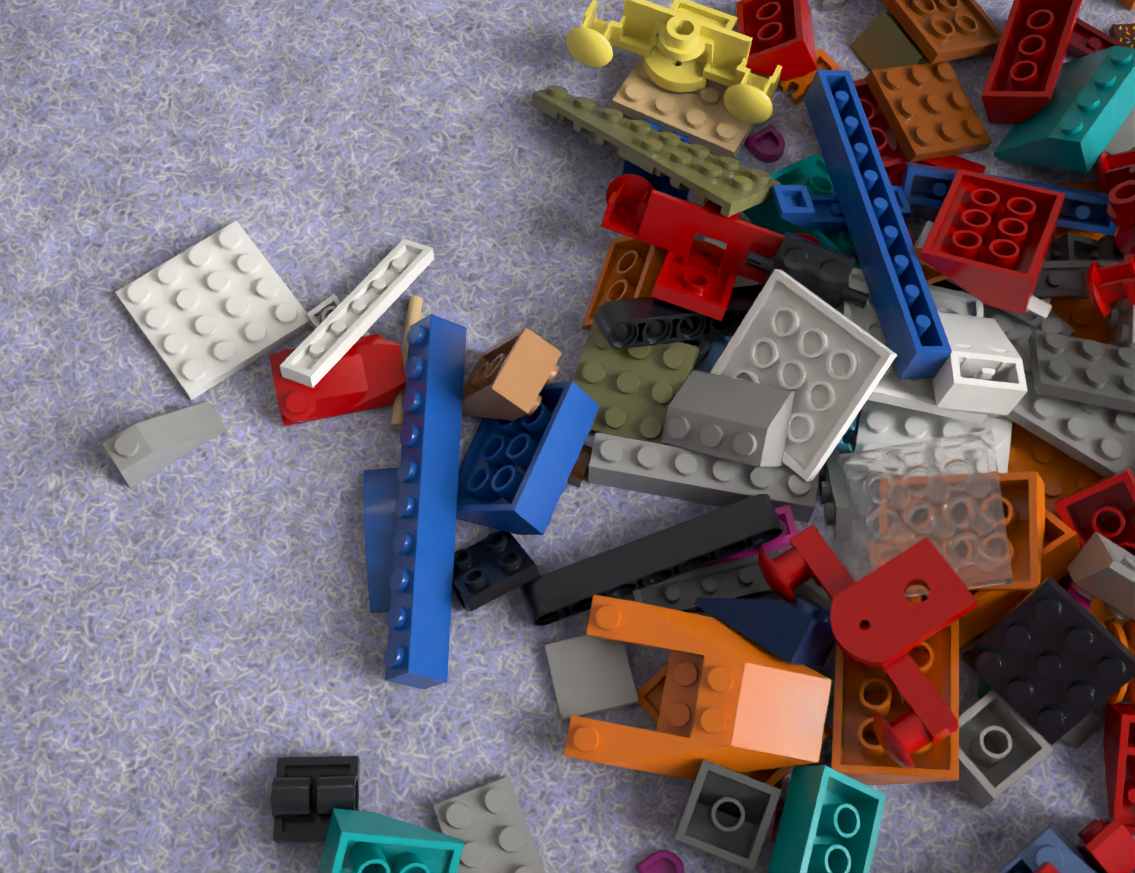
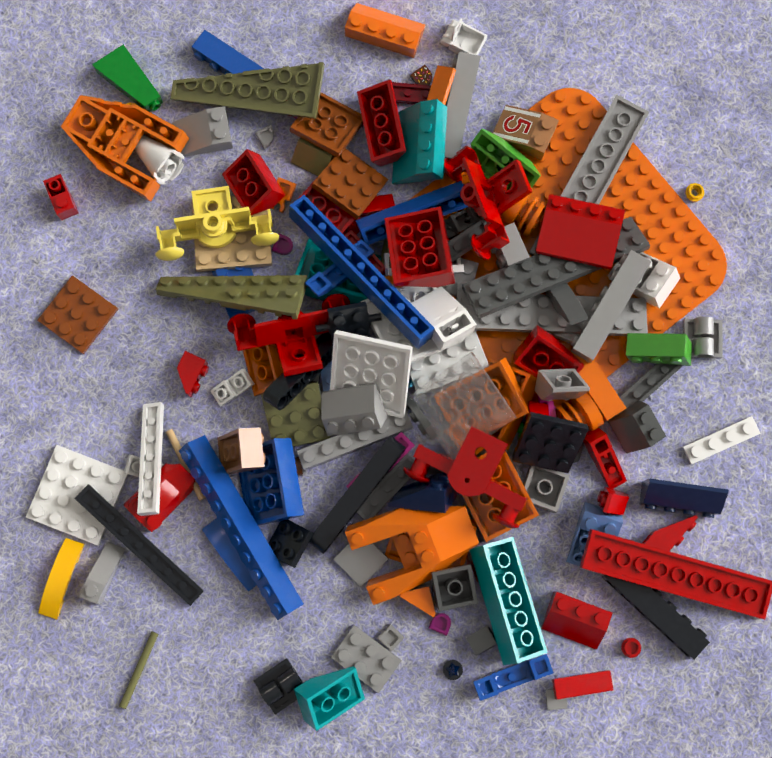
camera: 35 degrees left, 15 degrees up
(95, 407) = (59, 578): none -> yellow slope
(109, 624) = (138, 670): none -> olive bar
(252, 433) = (139, 544): none -> black plate
(397, 72) = (78, 314): none -> dark orange plate
(509, 232) = (191, 370): none -> red slope
(556, 295) = (233, 387): none -> white slope
(558, 840) = (390, 638): none -> light grey tile
(651, 802) = (421, 599): none -> orange slope

